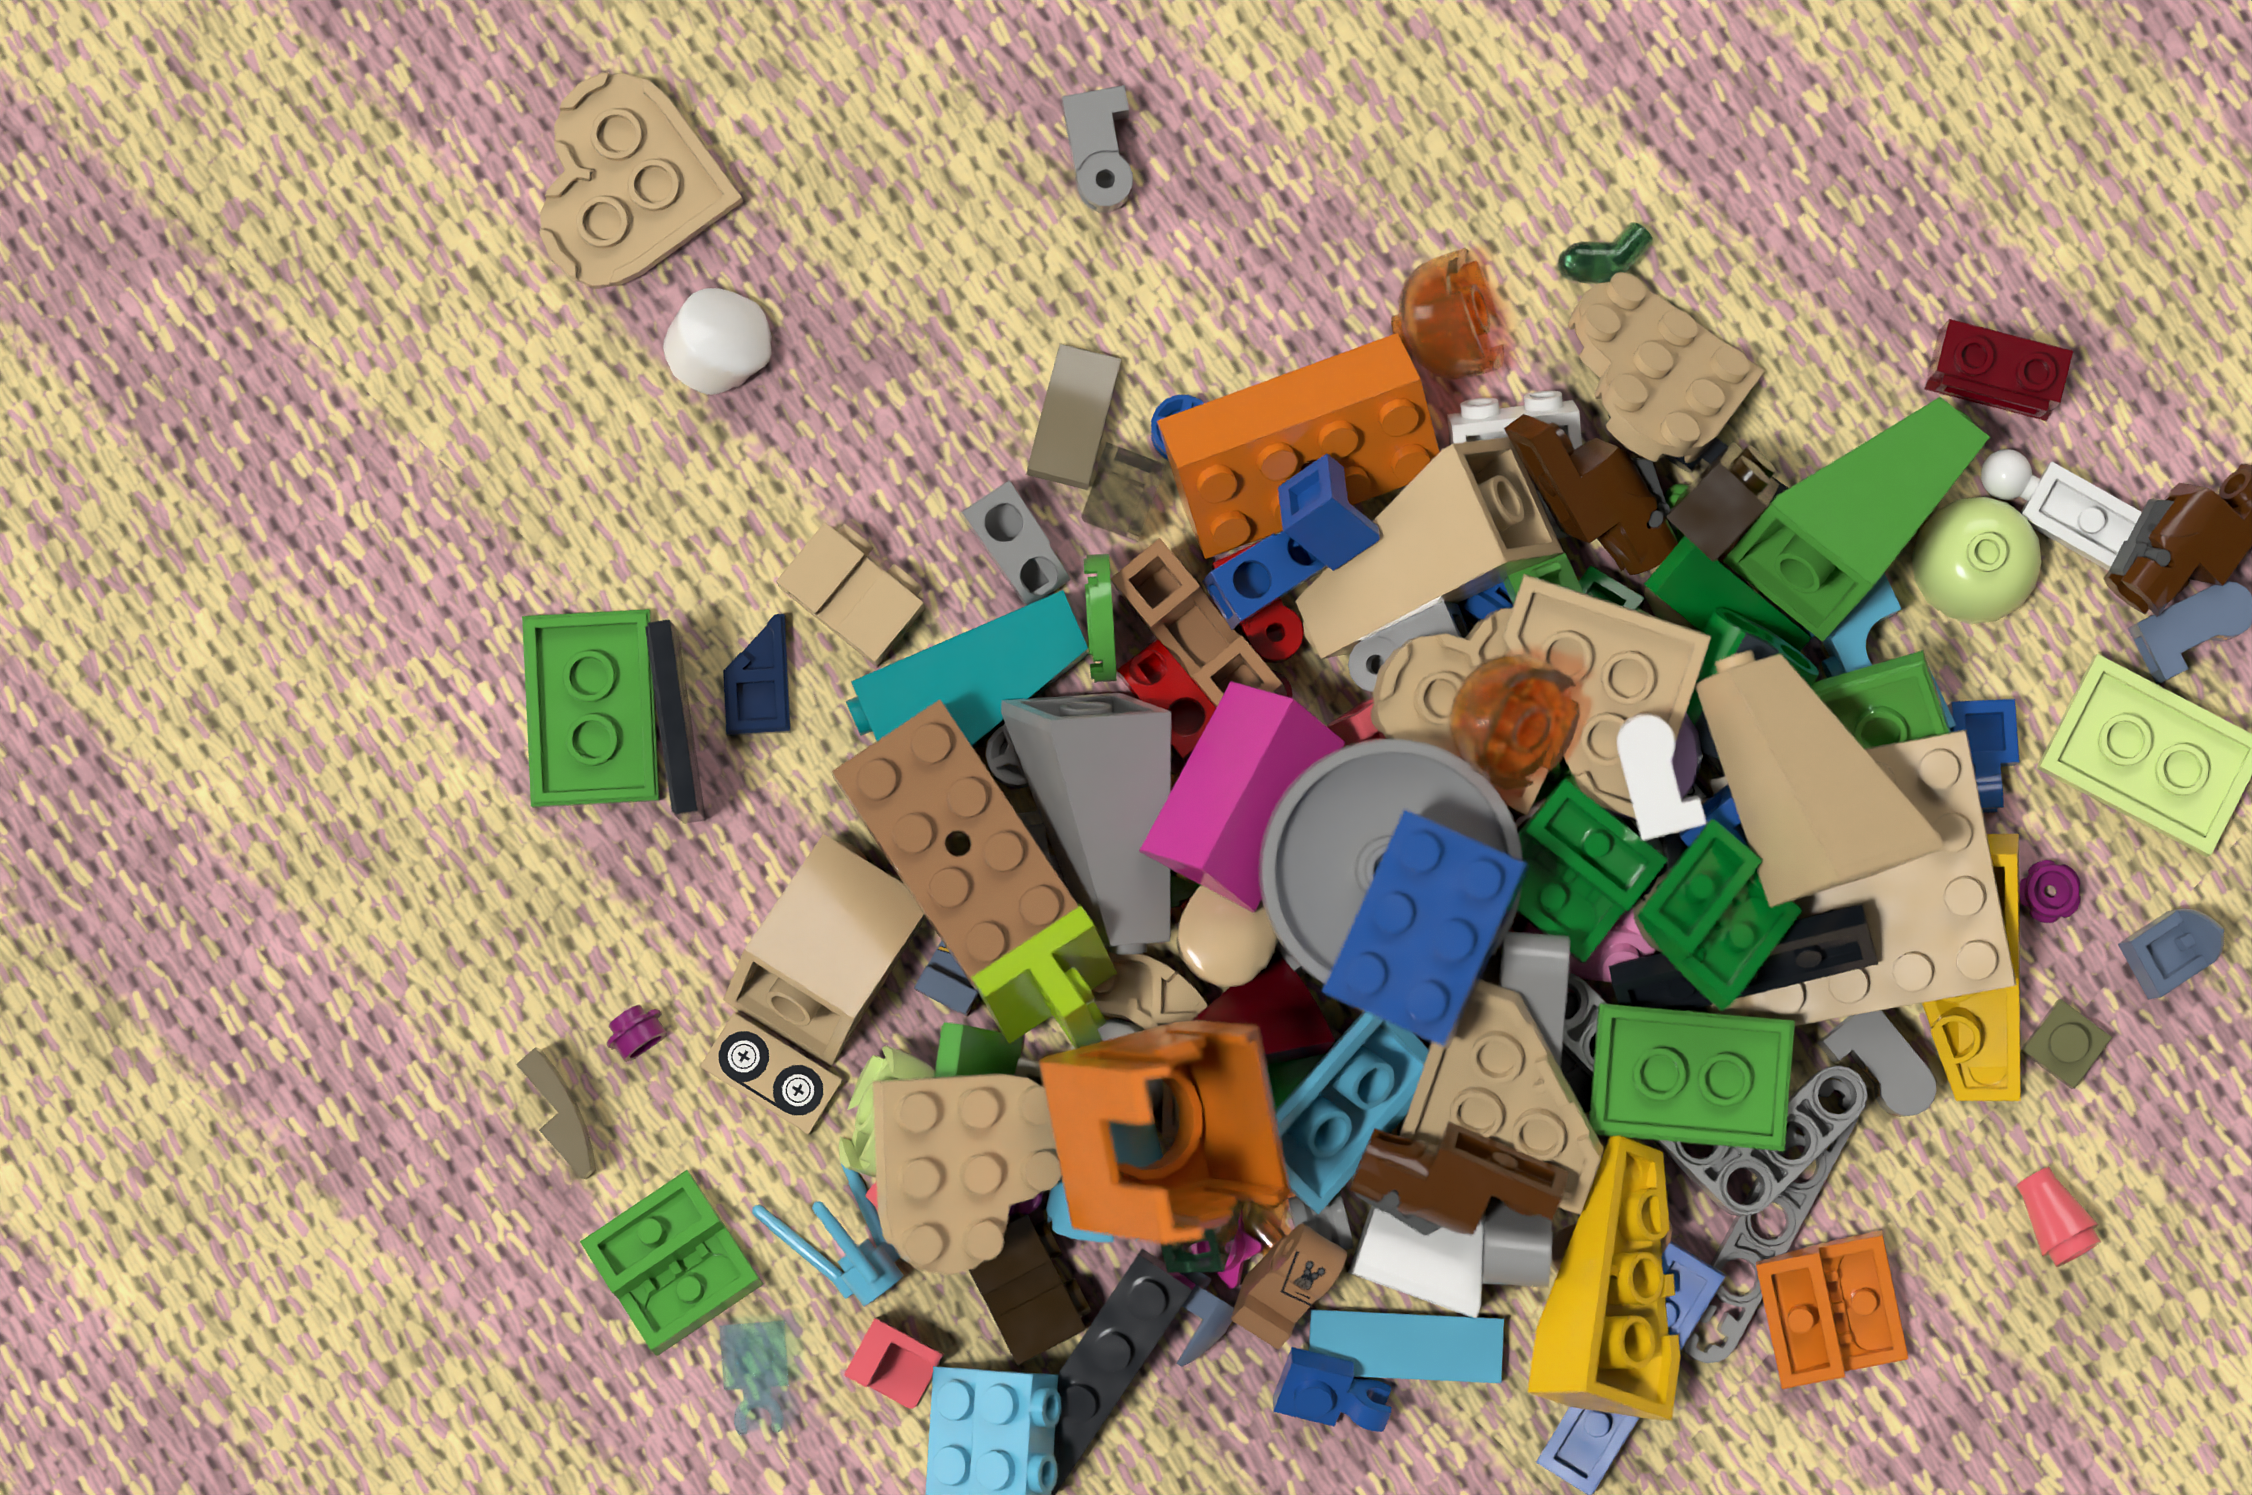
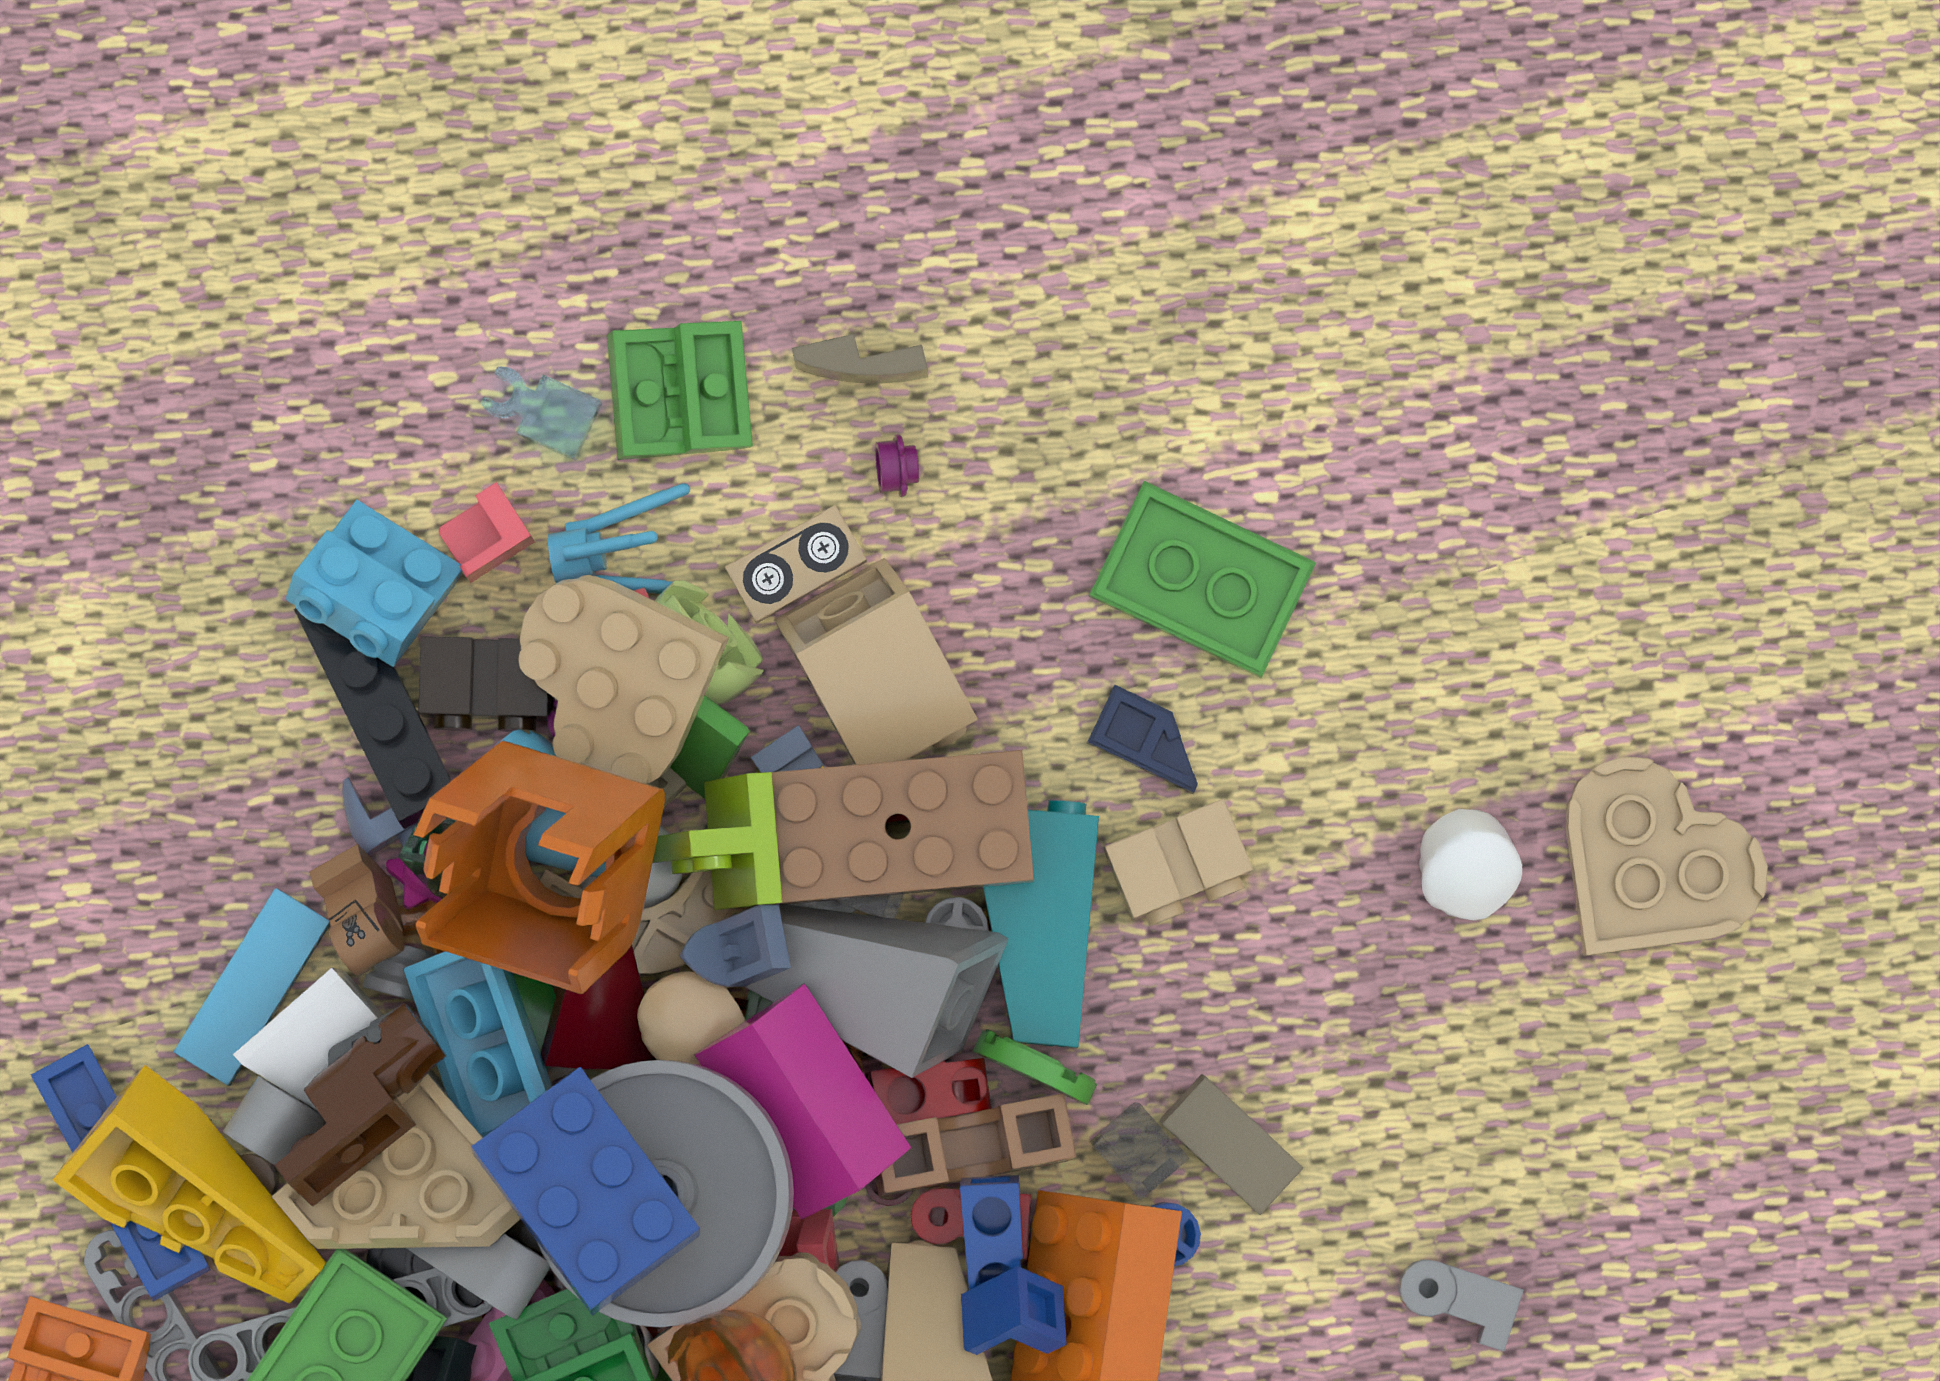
camera: 120 degrees right, 0 degrees up
(675, 721) = (1146, 642): black tile -> none
(1016, 543) = (1145, 1029): light grey leg -> none
(1139, 922) = (739, 948): none -> sand blue plate
(1323, 1386) = (254, 896): blue plate -> none

